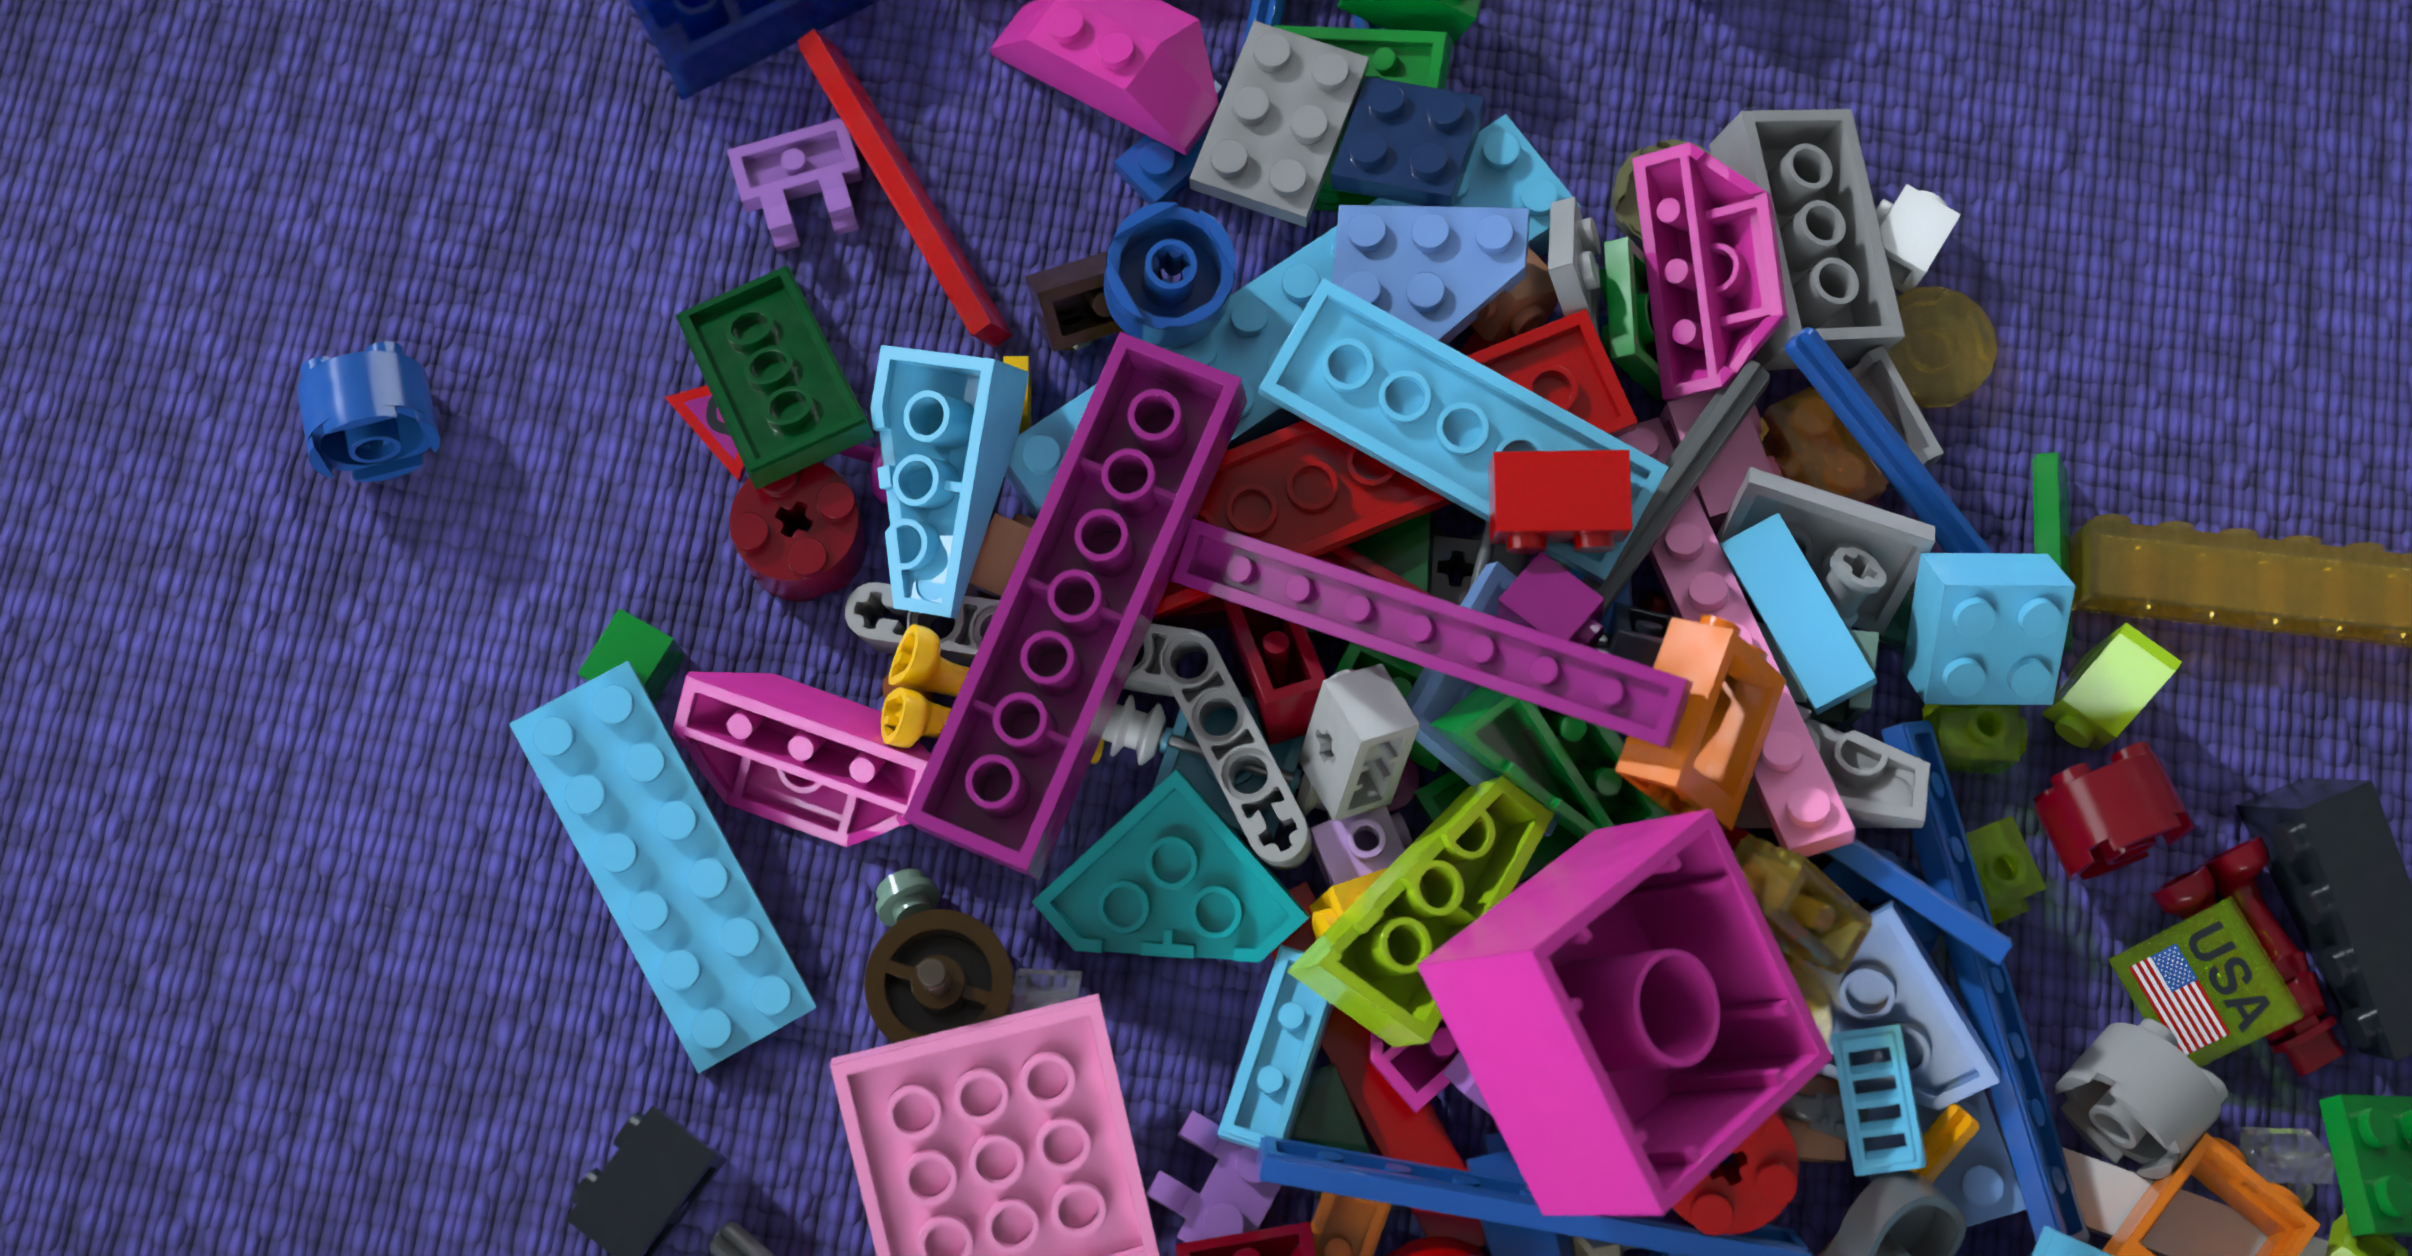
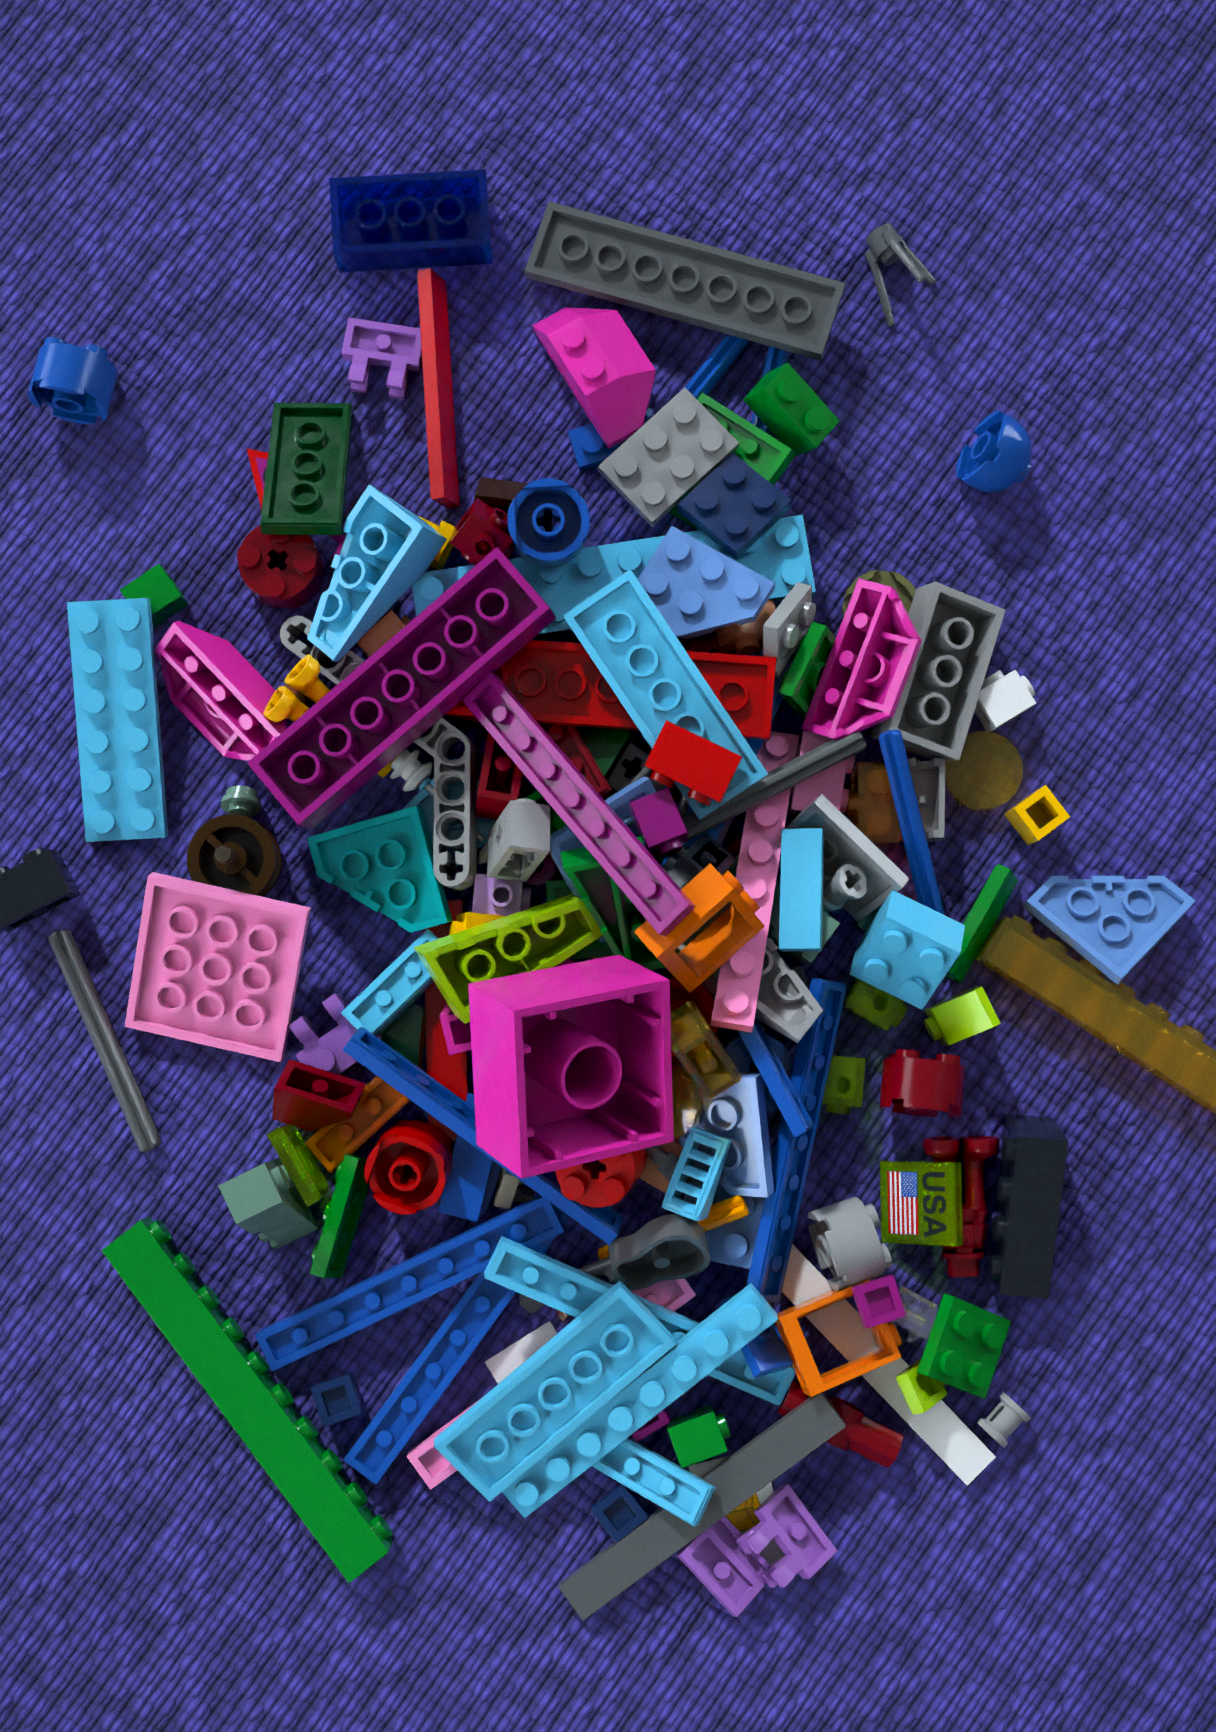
camera: 25 degrees right, 10 degrees up
(1043, 988) = (290, 889): clear tile -> none
(1075, 338) = (481, 532): none -> dark red brick
(2048, 364) = (1037, 815): none -> yellow brick
(2224, 456) = (1110, 917): none -> medium blue plate
(2244, 1154) = (878, 1301): none -> magenta plate

